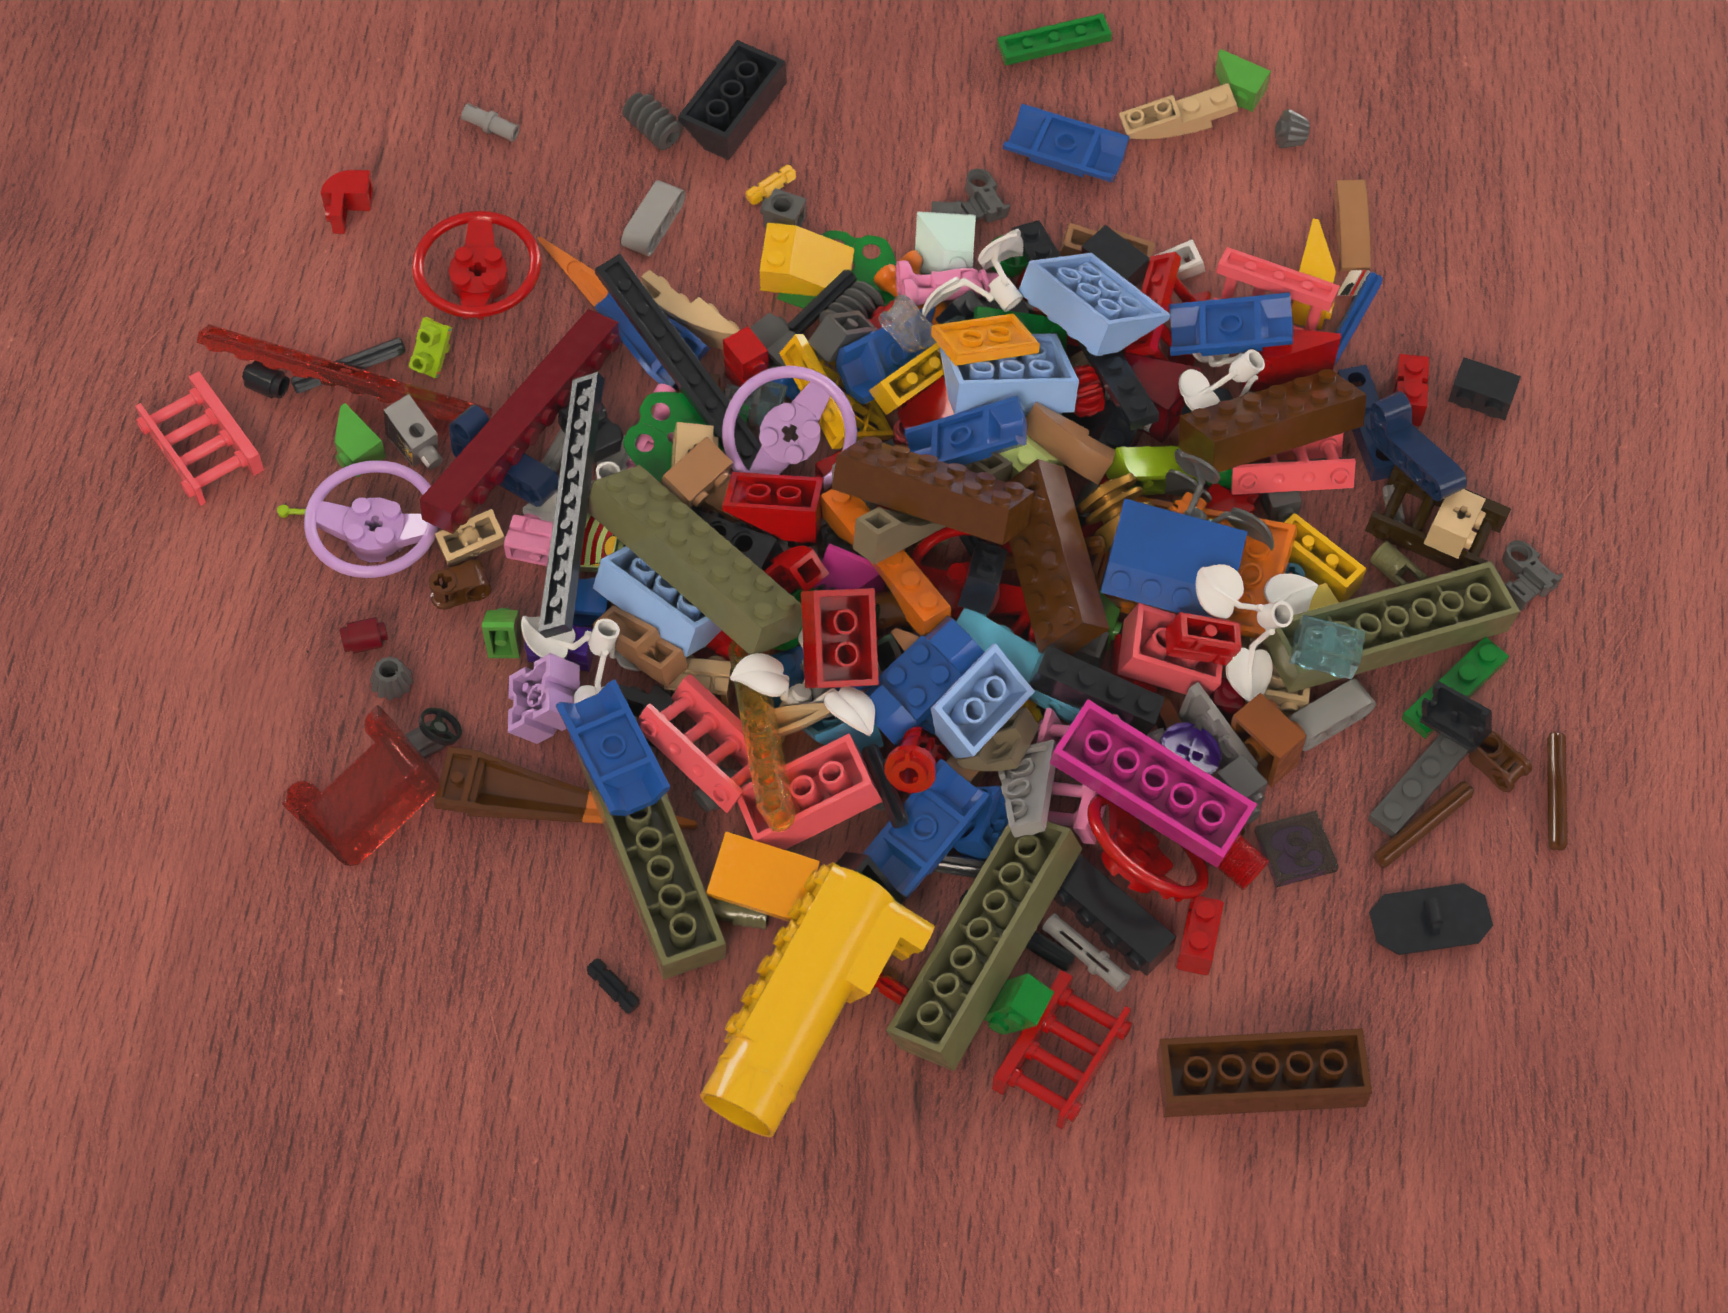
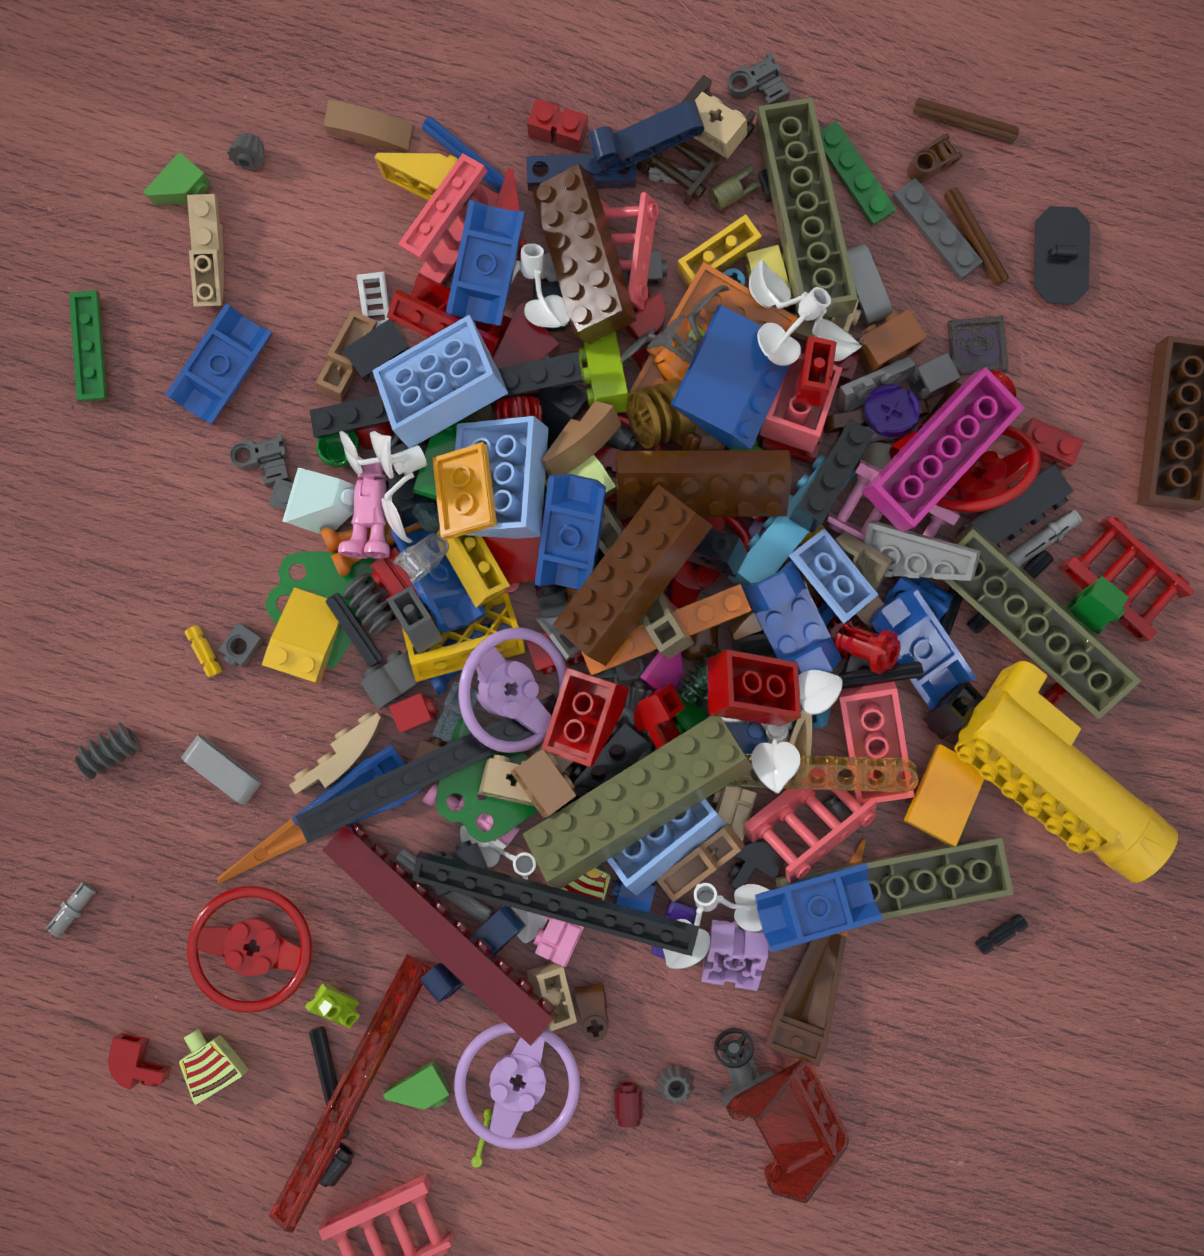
camera: 80 degrees left, 25 degrees up
(351, 259) = (209, 1065): none -> yellowish green torso
(412, 433) = (420, 1043): light grey torso -> none
(502, 633) = (651, 980): bright green slope -> none
(733, 98) = (98, 669): black slope -> none
(1327, 647) = (844, 267): clear light blue brick -> none
(1353, 282) = (426, 142): sticker -> none
(1456, 717) = (902, 180): black hinge -> none
(1484, 388) = (568, 61): black brick -> none

